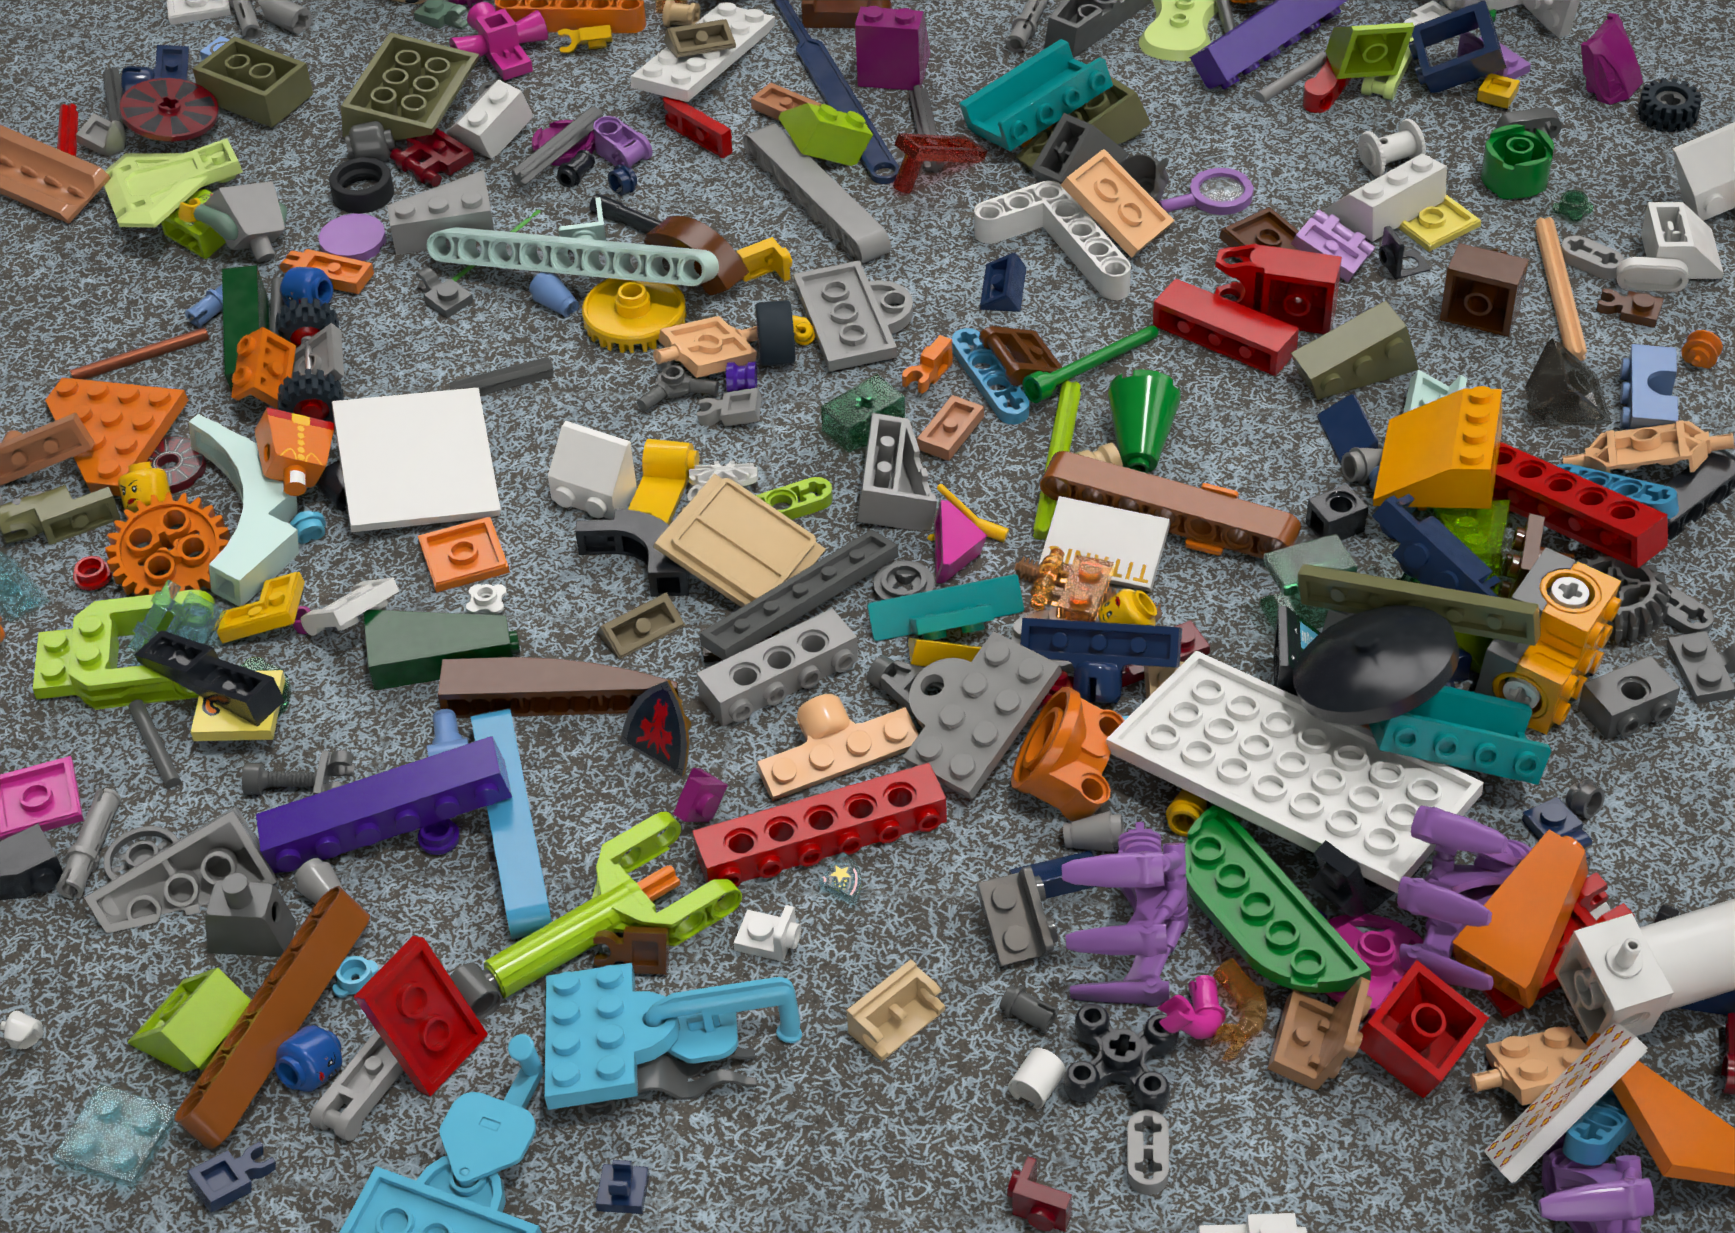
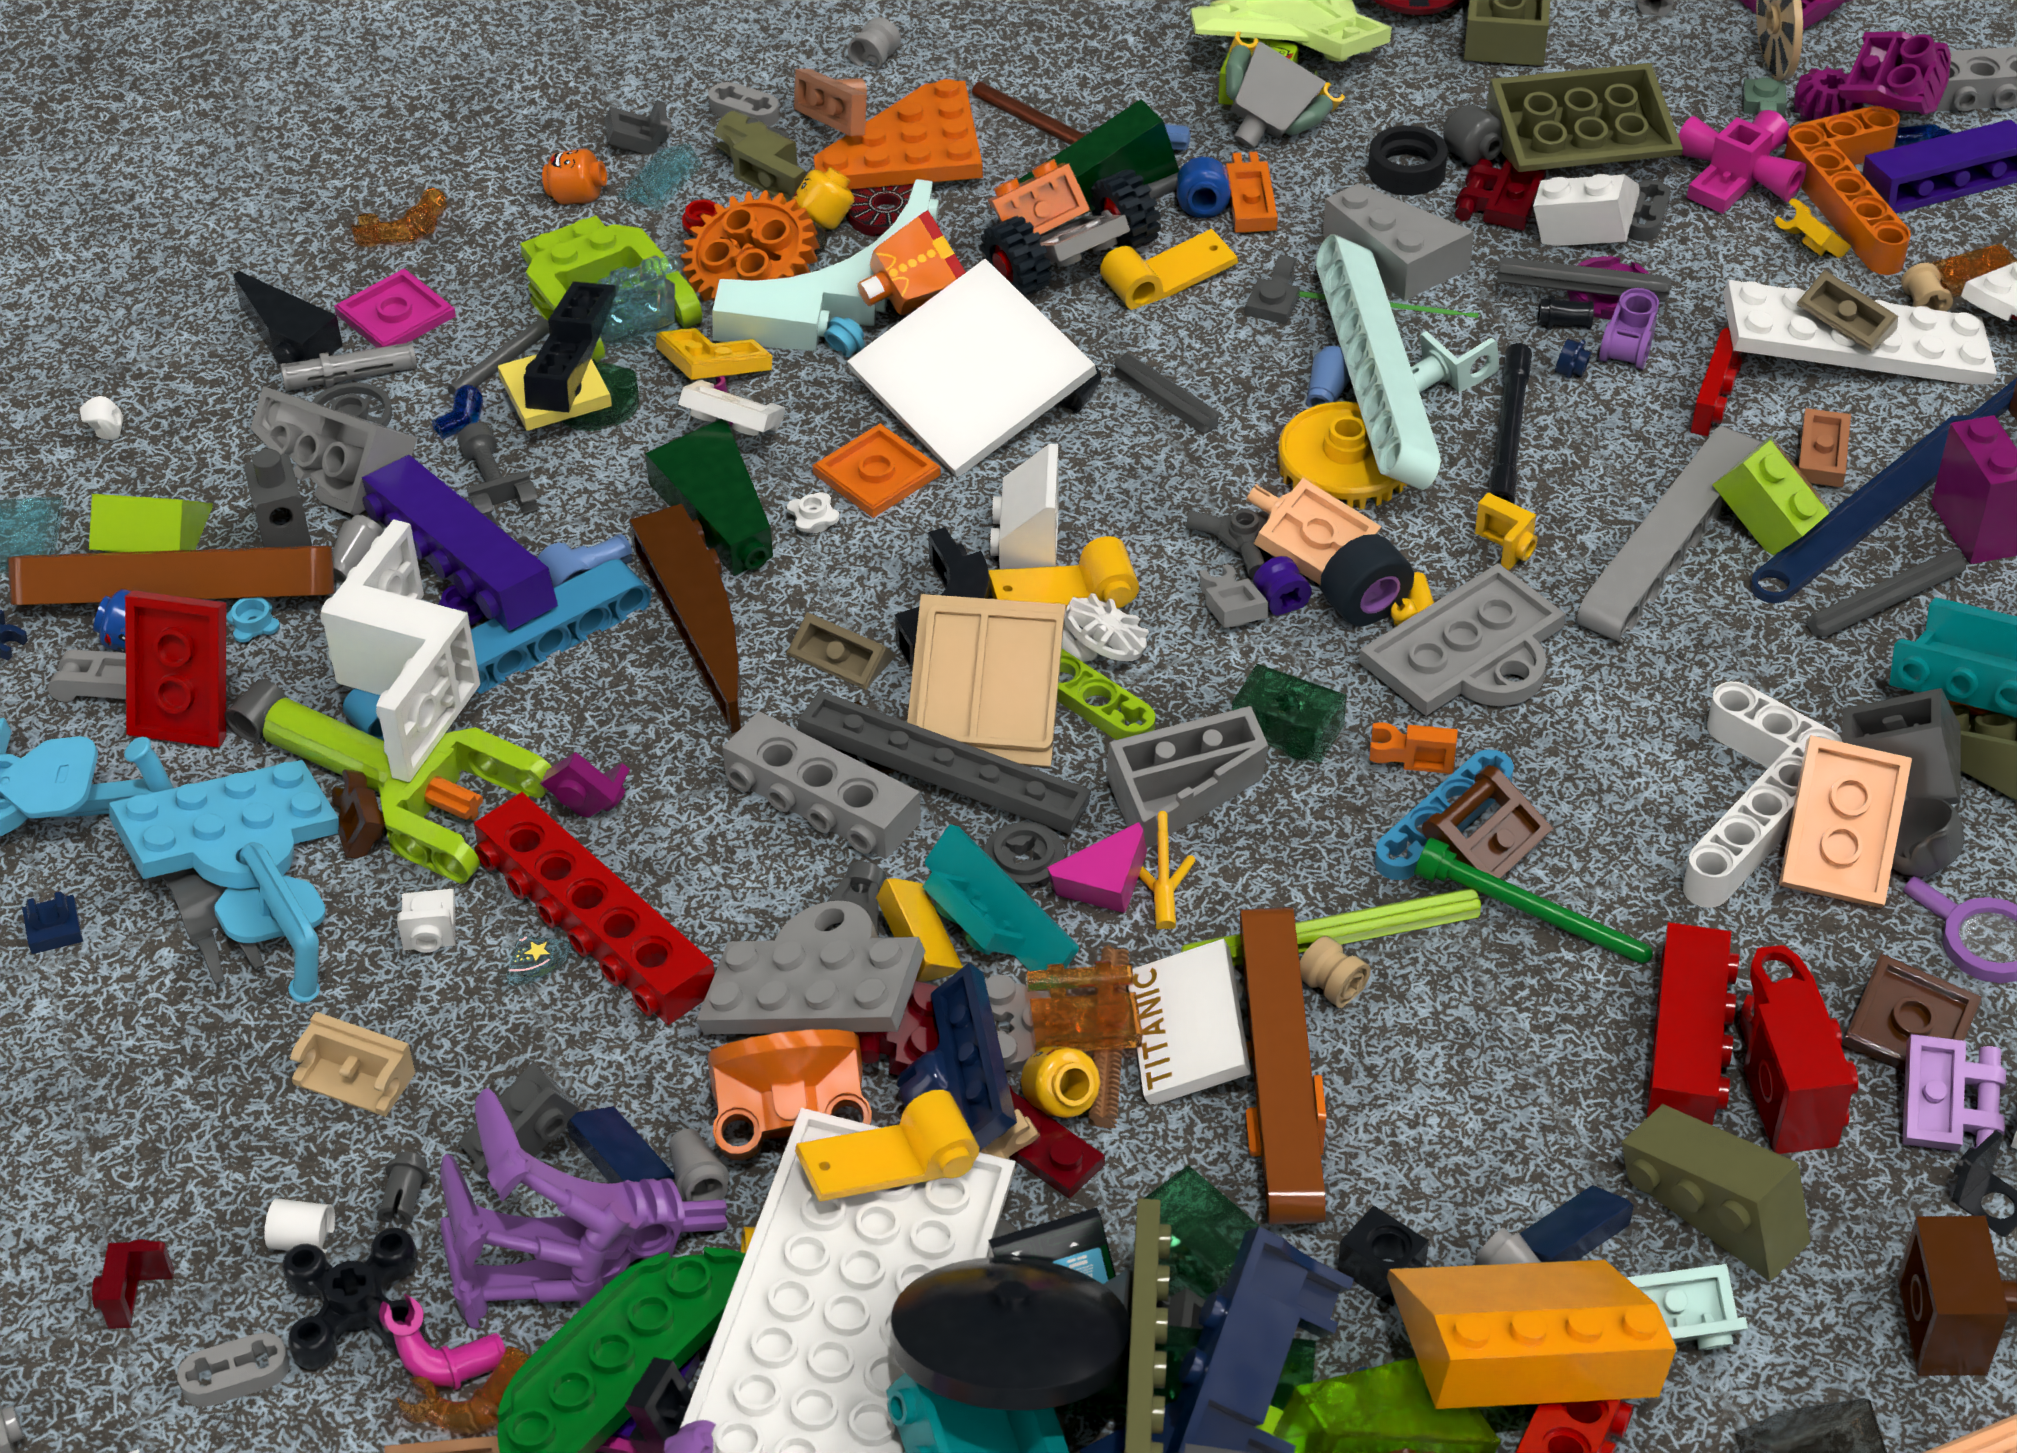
camera: 65 degrees right, 0 degrees up
(210, 782) = (465, 411): none -> clear blue arm
(353, 236) = (1309, 183): medium lavender tile -> none
(373, 337) = (1167, 273): none -> yellow door
(518, 849) = (401, 649): none -> white bracket
(659, 727) = (680, 725): shield -> none
(693, 234) = (1463, 457): reddish brown arch -> none
(834, 746) = (724, 877): light nougat plate -> none
(932, 148) = (1825, 608): clear red piece -> none
(950, 427) = (1319, 806): nougat plate -> none
(1003, 284) = (1633, 774): dark blue slope -> none
(1142, 416) = (1427, 986): green cone -> none
(1175, 694) = (924, 1147): none -> yellow door

